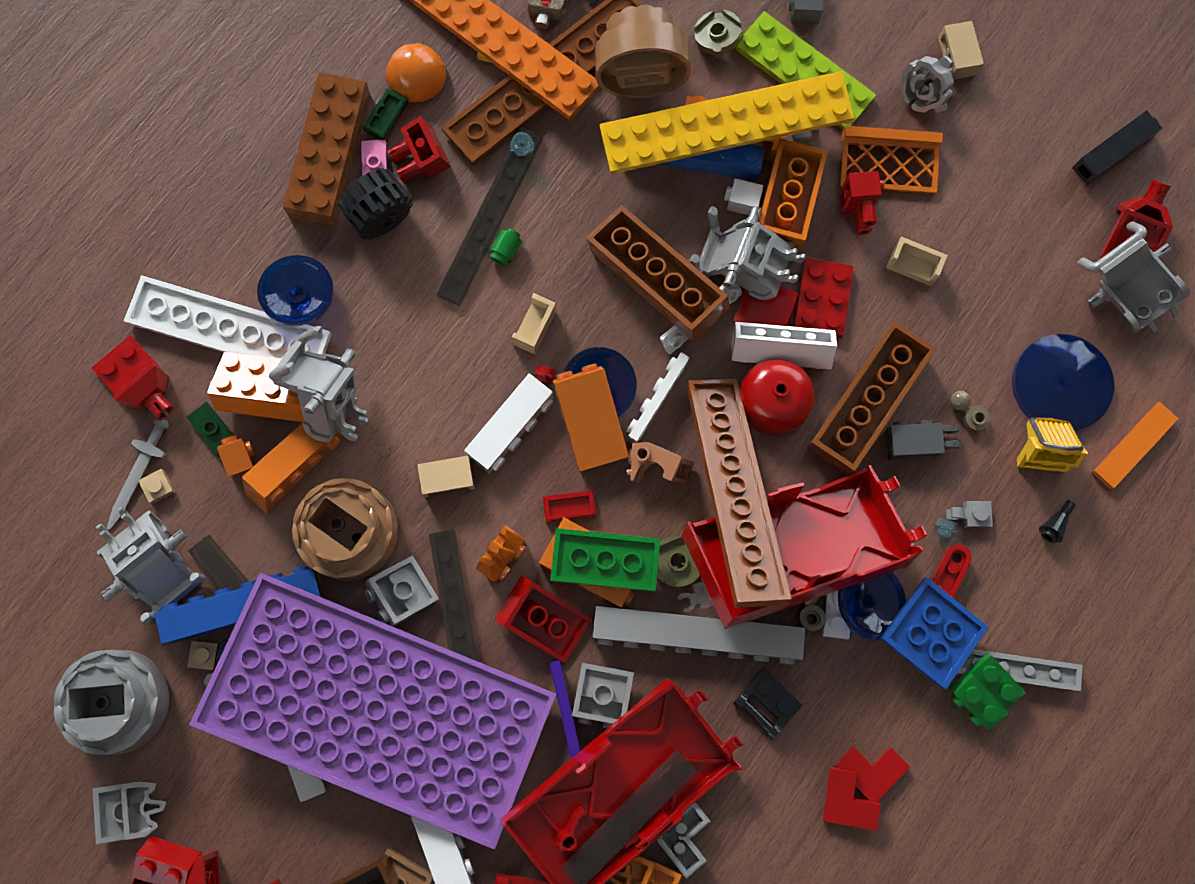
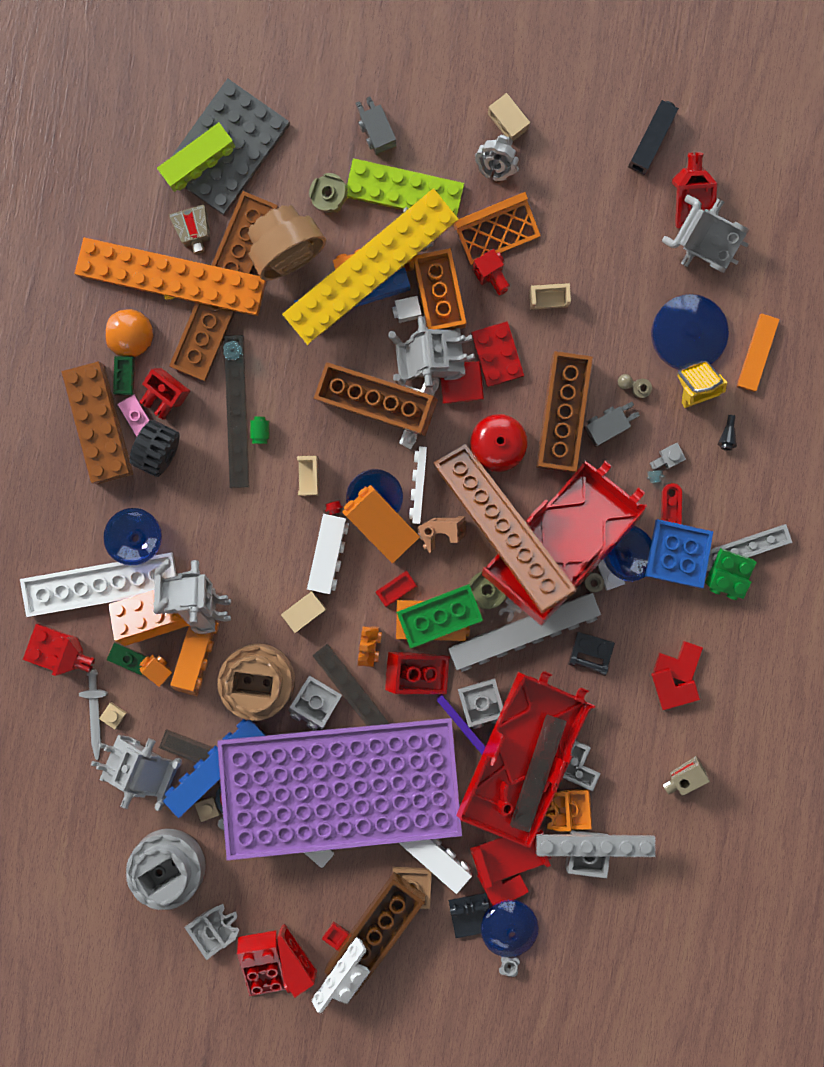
camera: 20 degrees left, 10 degrees up
(796, 344) = (495, 400): white brick -> none

